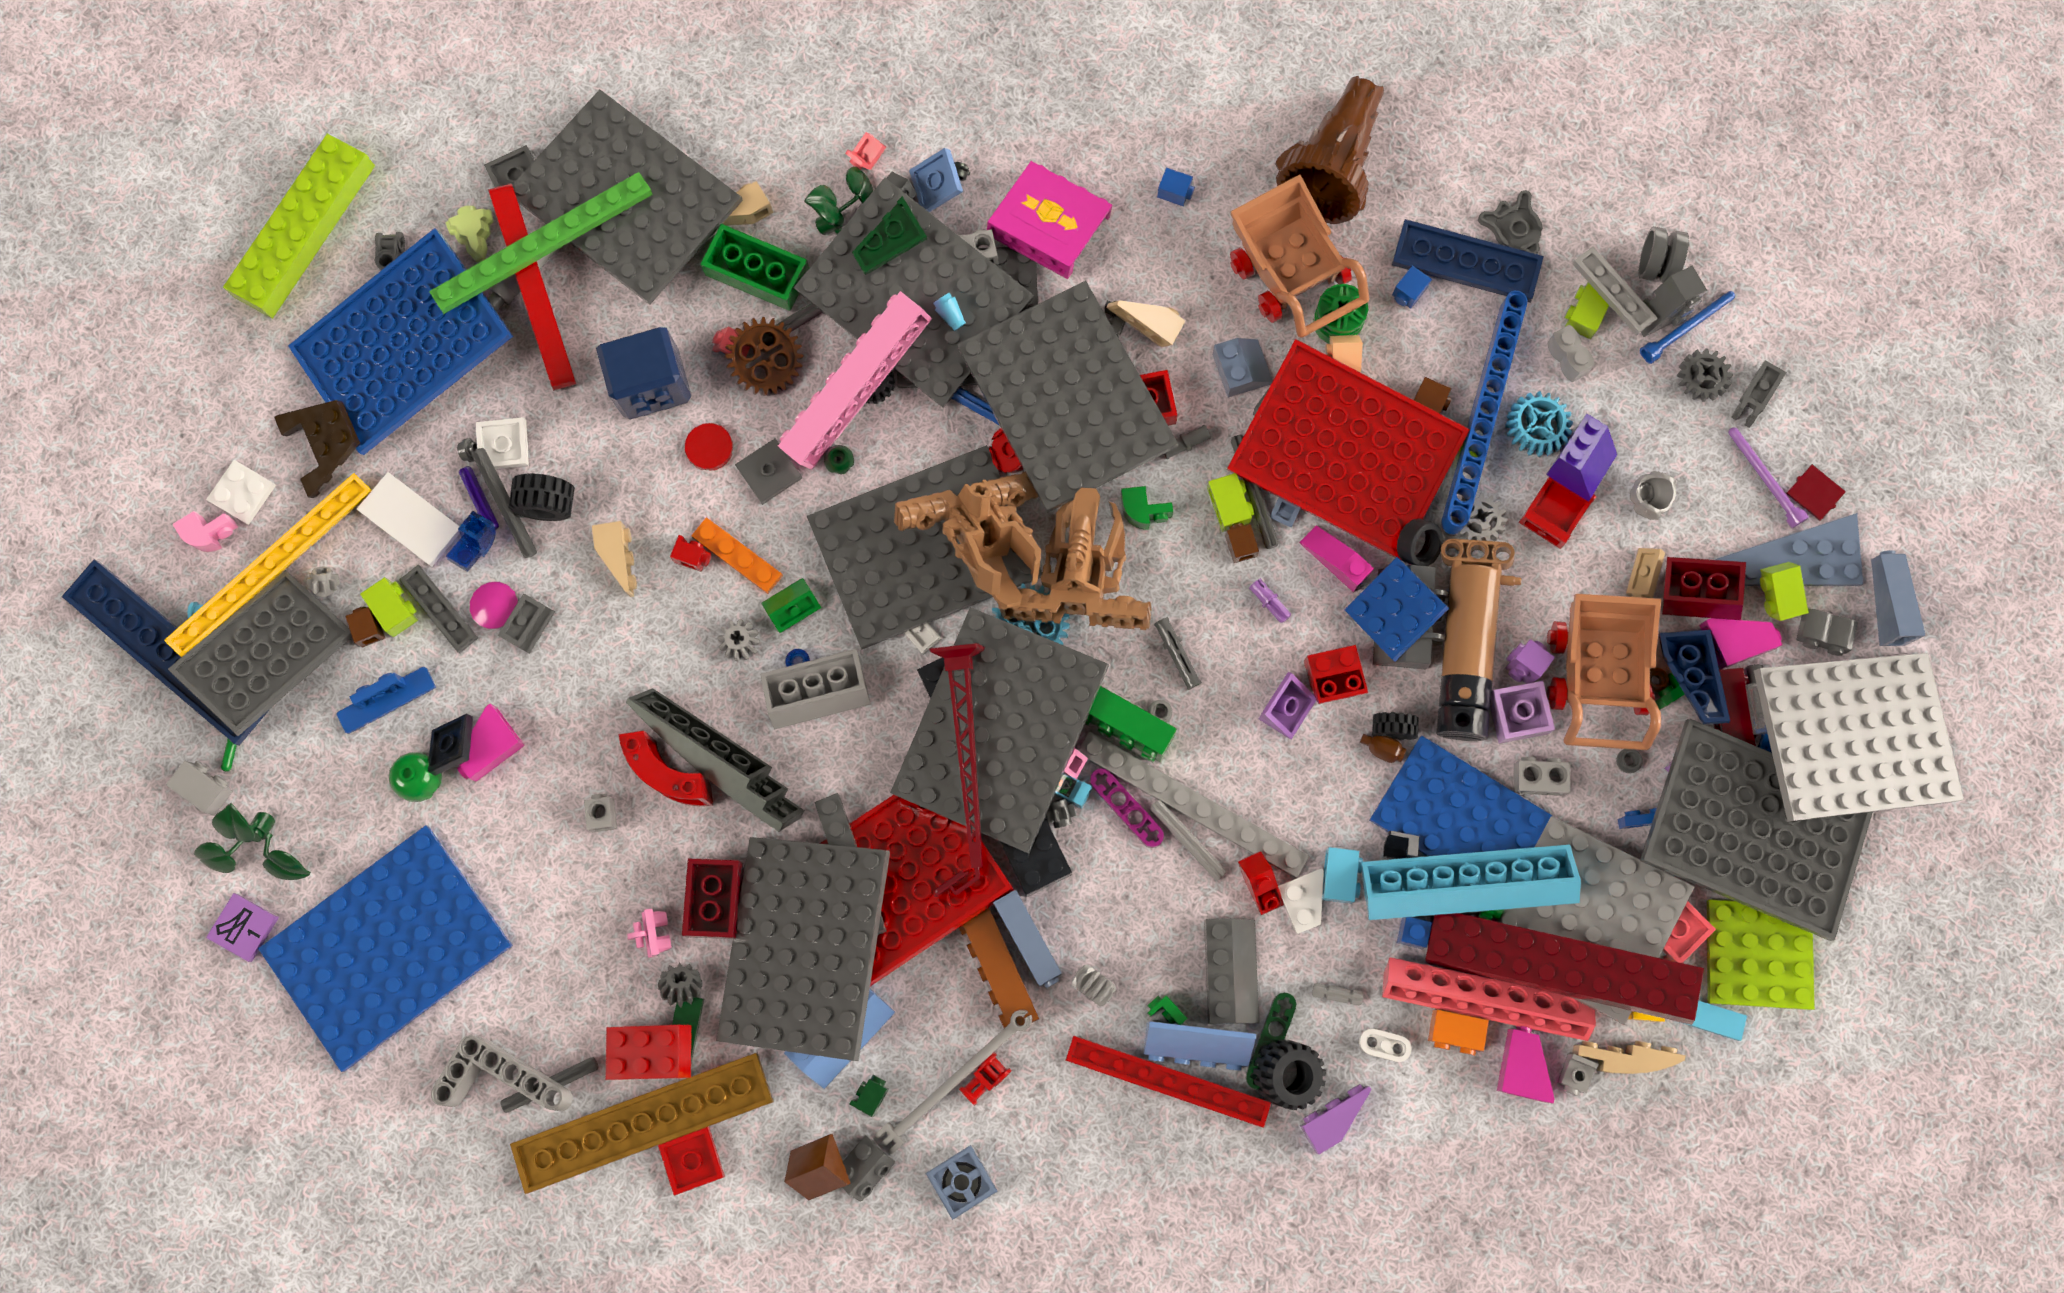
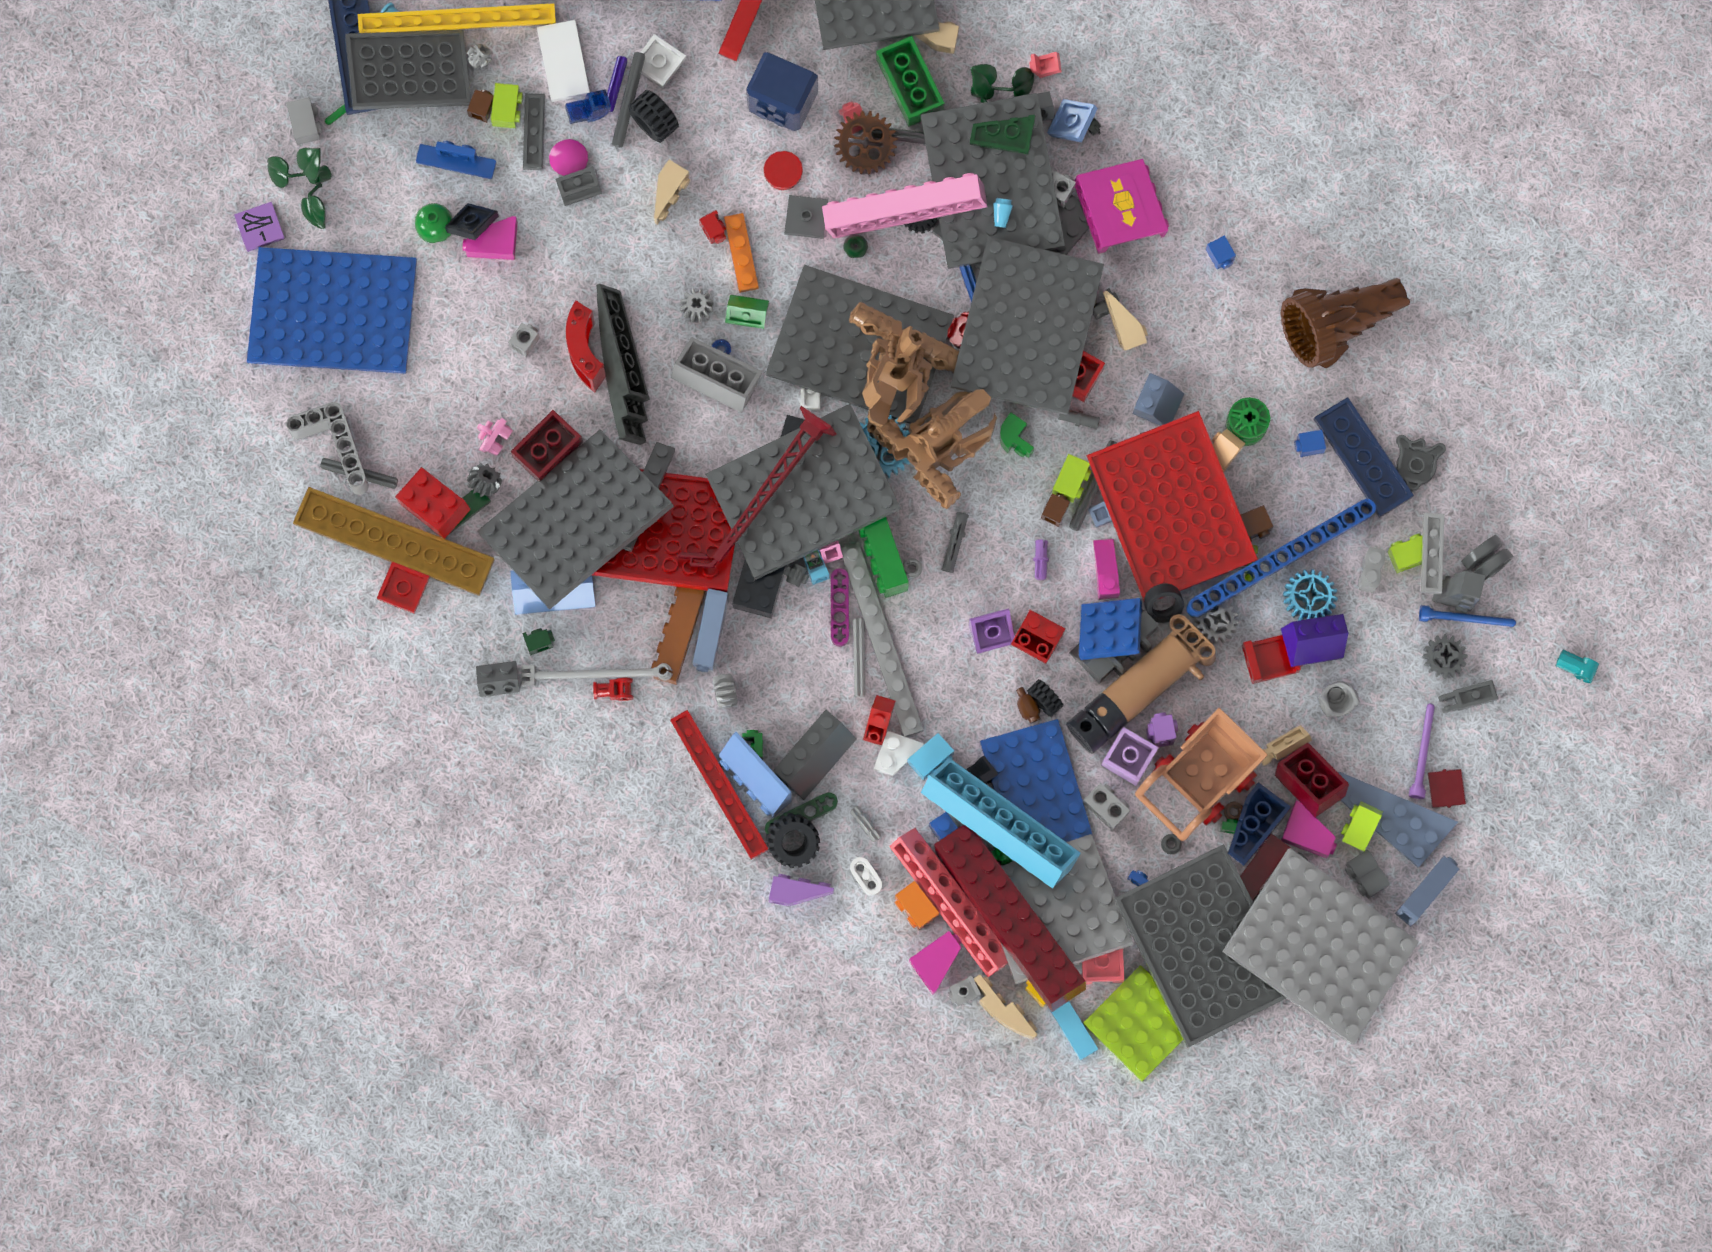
camera: 35 degrees right, 0 degrees up
(466, 448) = (633, 46): dark grey plate -> none
(816, 1168) = (471, 654): reddish brown slope -> none
(961, 1182) = (549, 735): sand blue piece -> none
(1291, 253) = (1249, 349): nougat piece -> none
(1826, 283) = (1582, 668): none -> teal piece

